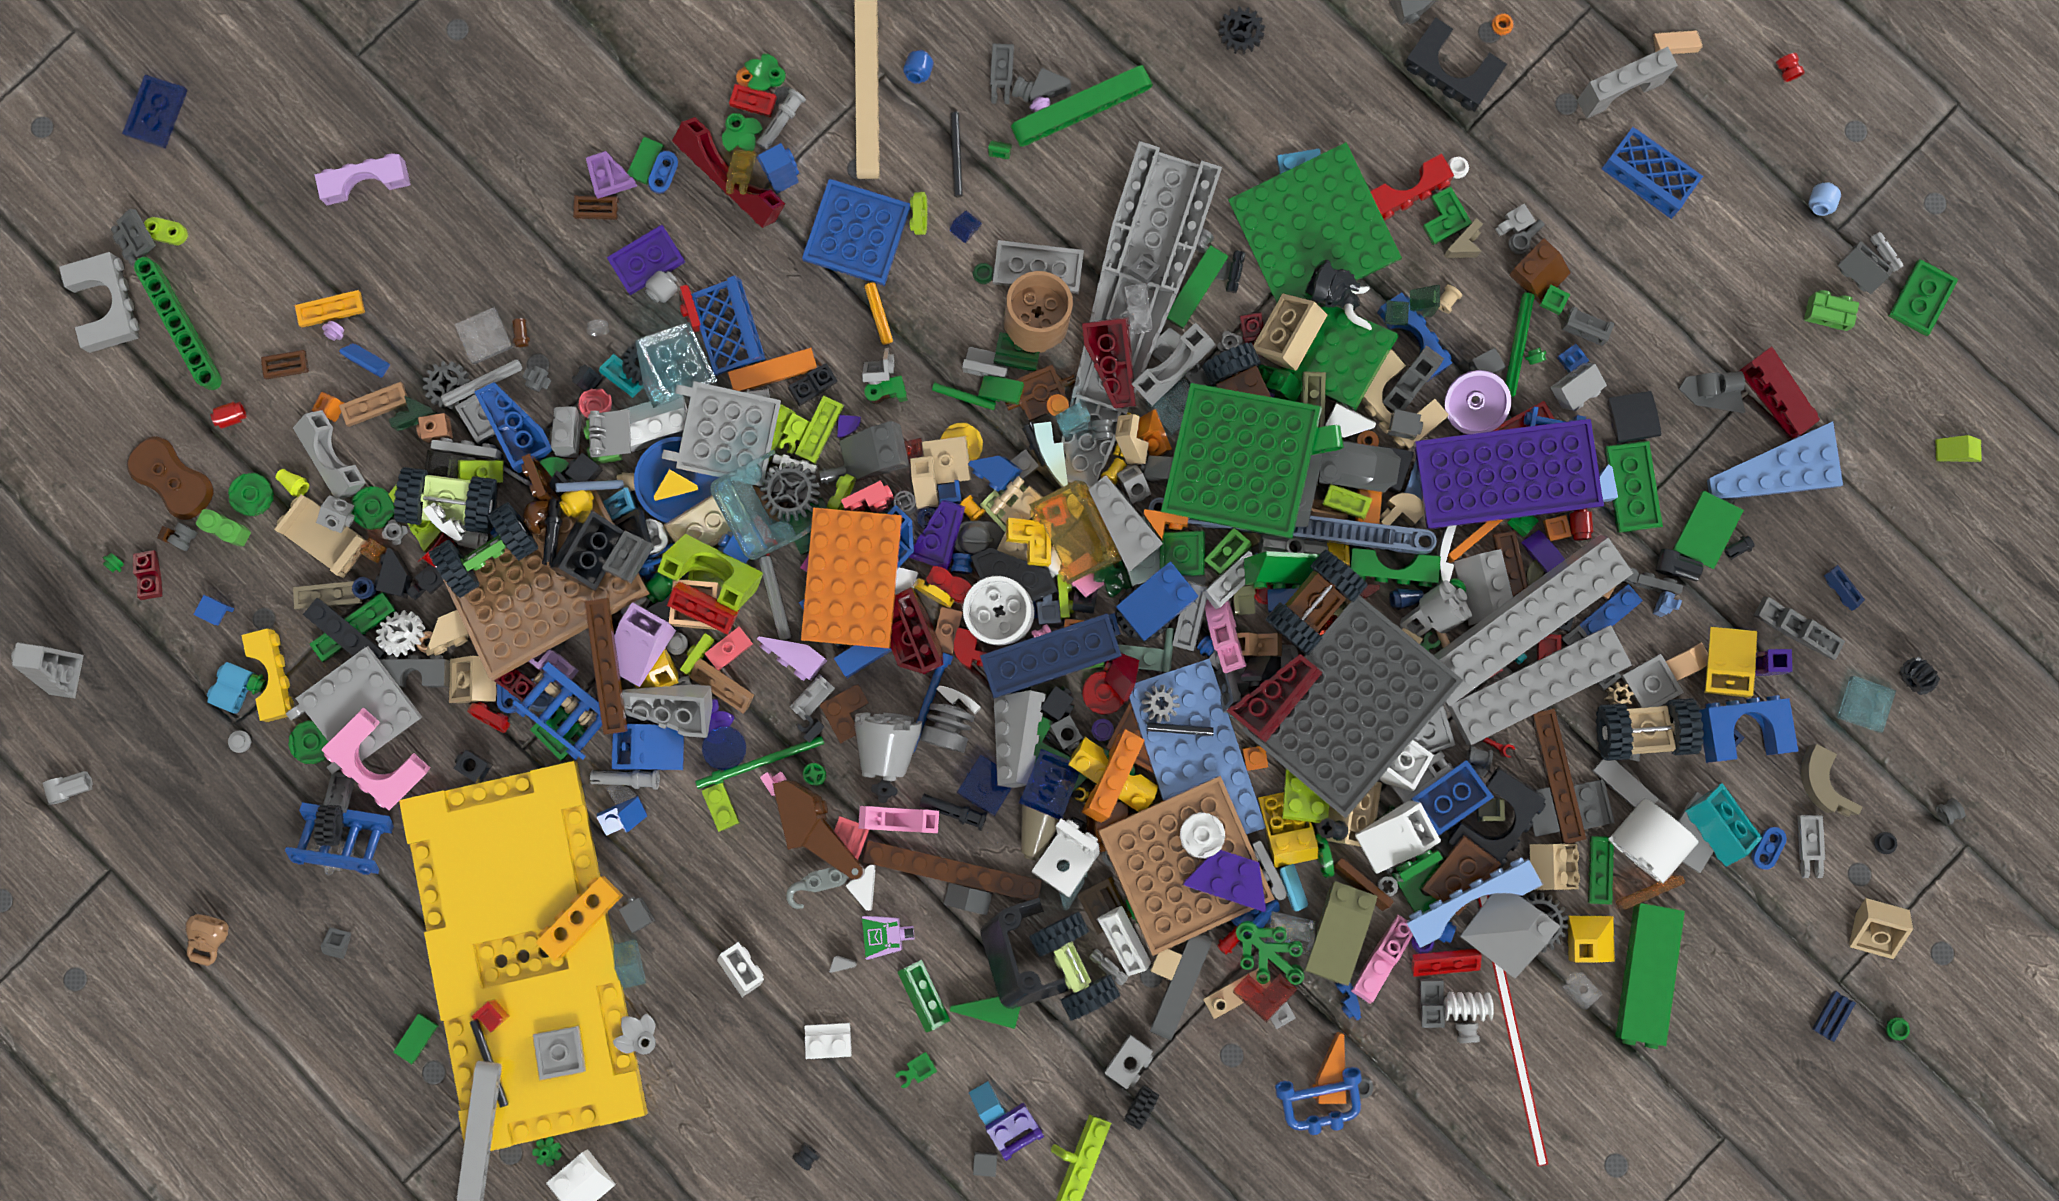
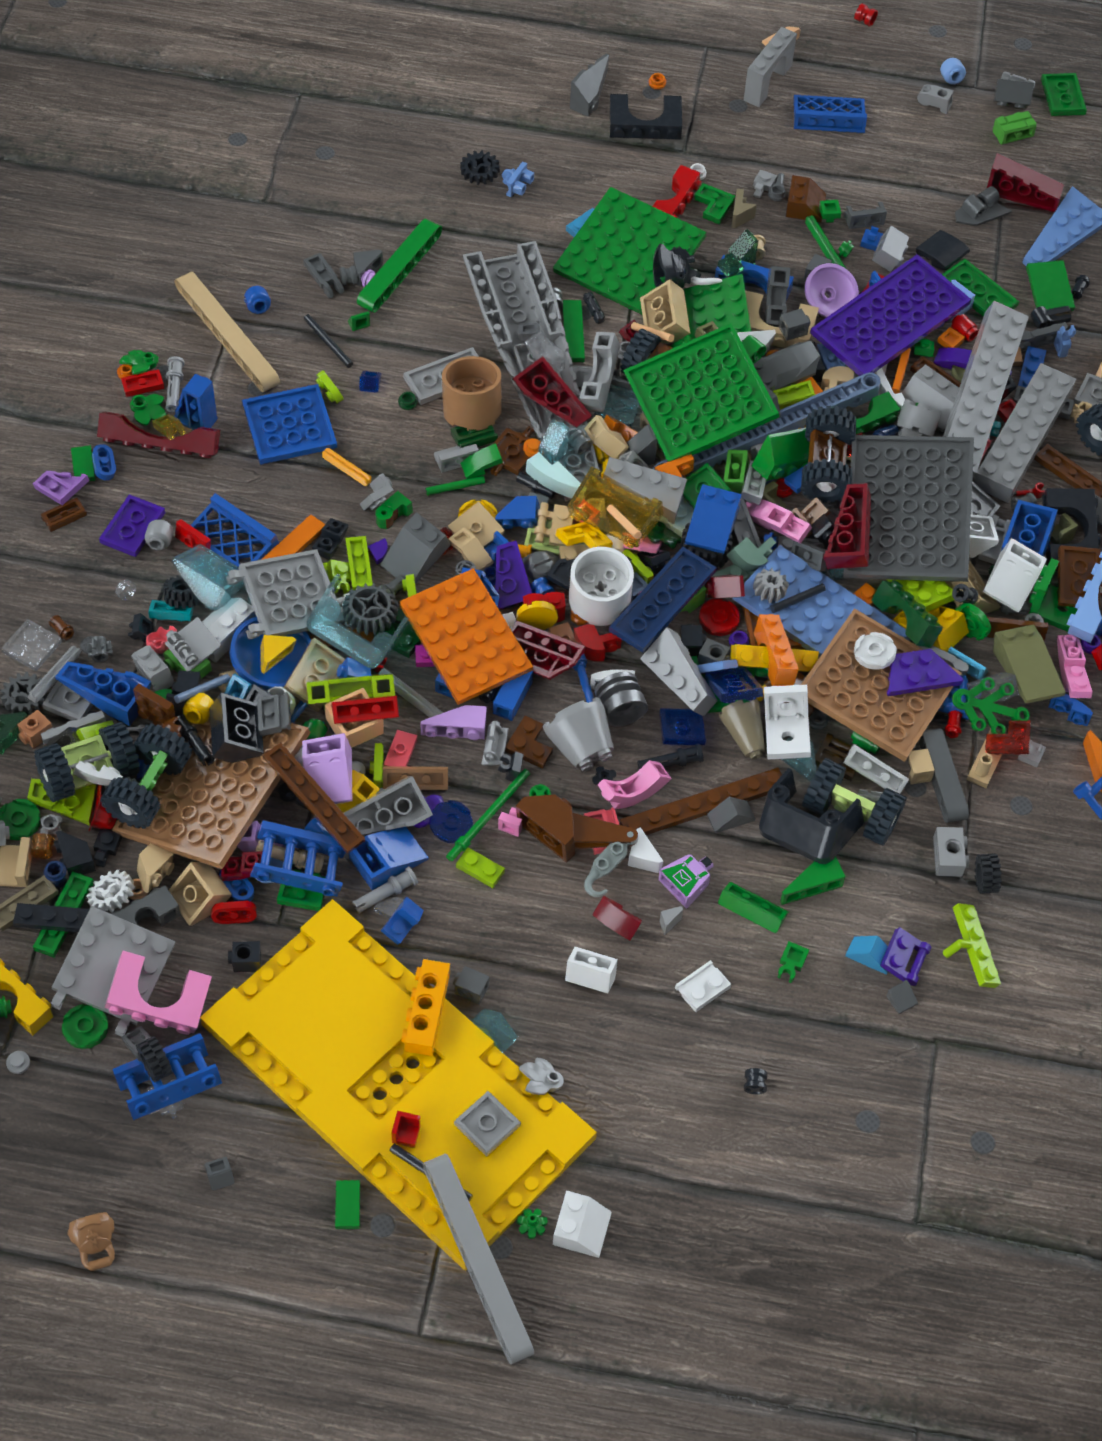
camera: 40 degrees left, 25 degrees down
(794, 928) = (616, 918): none -> dark red slope
(874, 496) = (439, 571): coral plate -> none
(1053, 752) = (716, 666): none -> medium blue tile
(1072, 552) = (624, 522): none -> light nougat bar
(1170, 657) = (750, 557): none -> sand green brick
(1259, 346) = (664, 336): none -> light nougat bar
(1266, 836) = (921, 626): none -> dark green arch
(1267, 64) = (514, 179): none -> medium blue hips
(1779, 221) = (936, 97): none -> light grey leg

